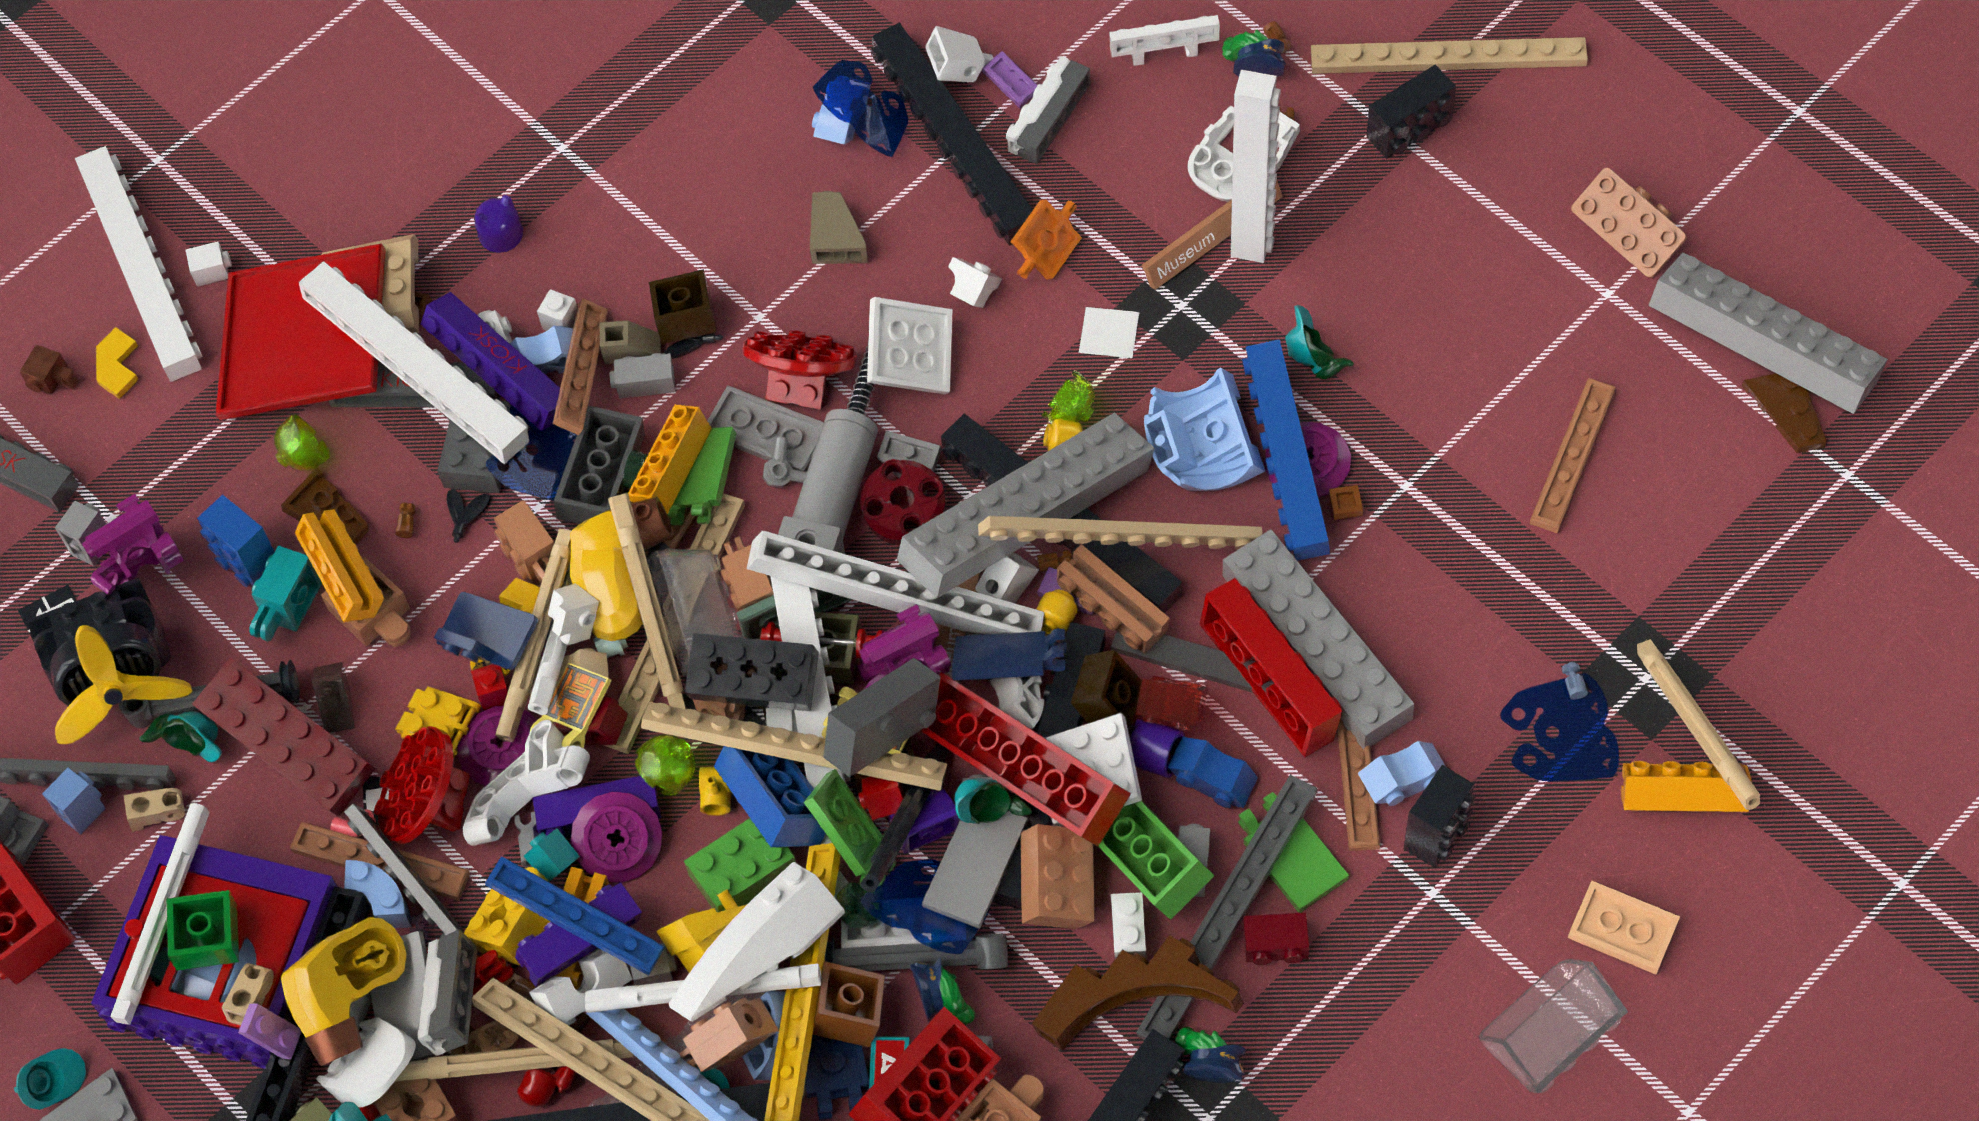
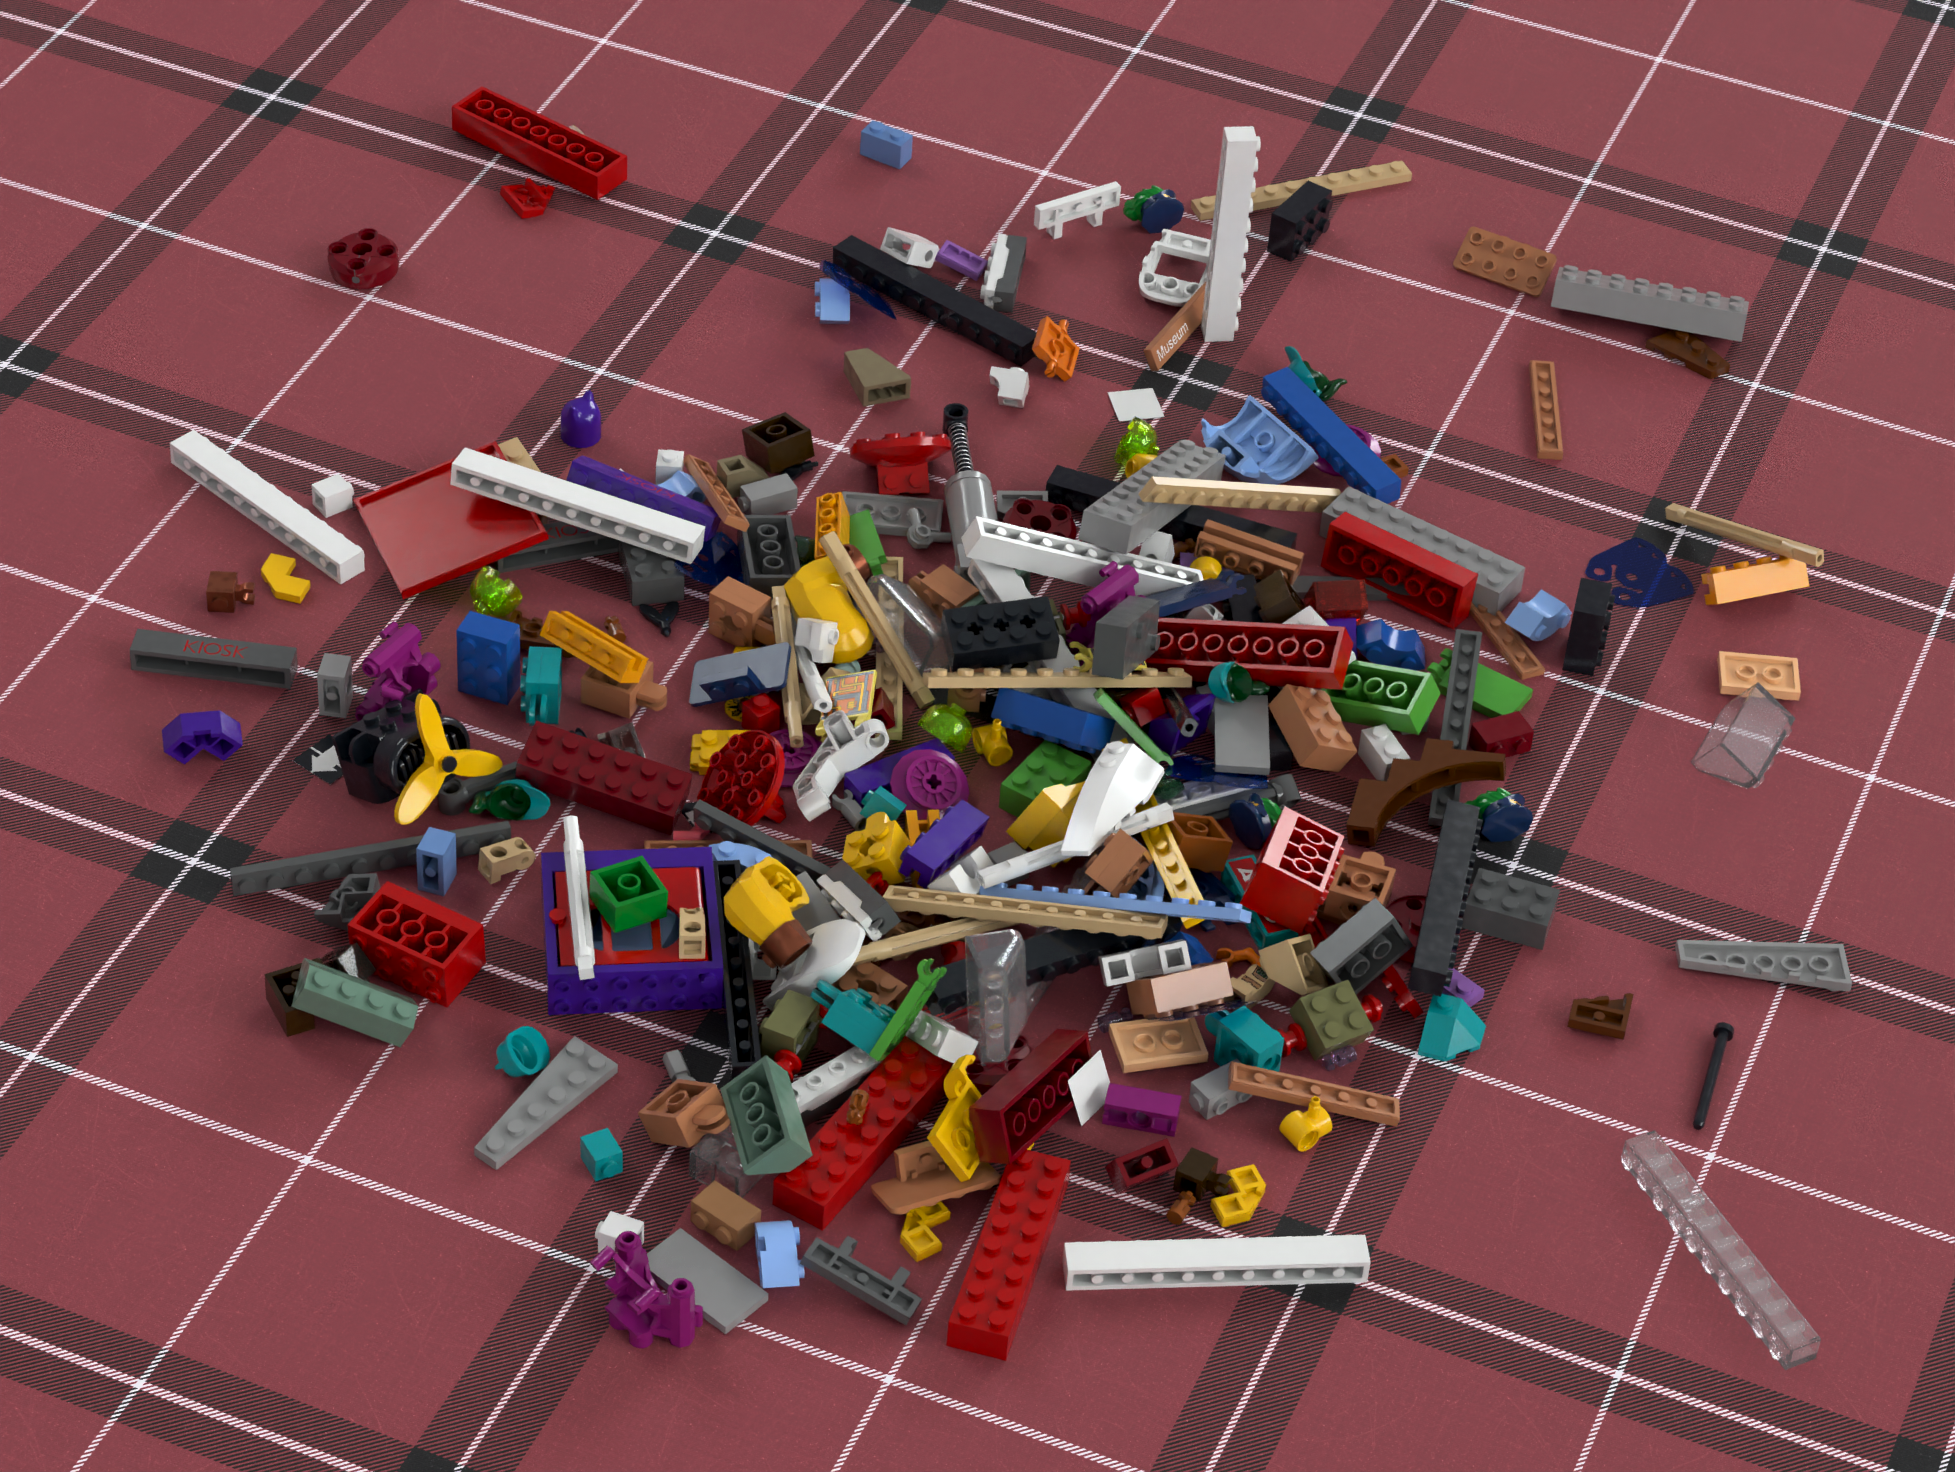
camera: 30 degrees left, 20 degrees down
(270, 1031) = (723, 949): medium lavender plate -> none
(575, 915) = (941, 822): blue tile -> none
(909, 345) = (988, 428): white plate -> none
(1575, 682) = (1631, 539): sand blue piece -> none

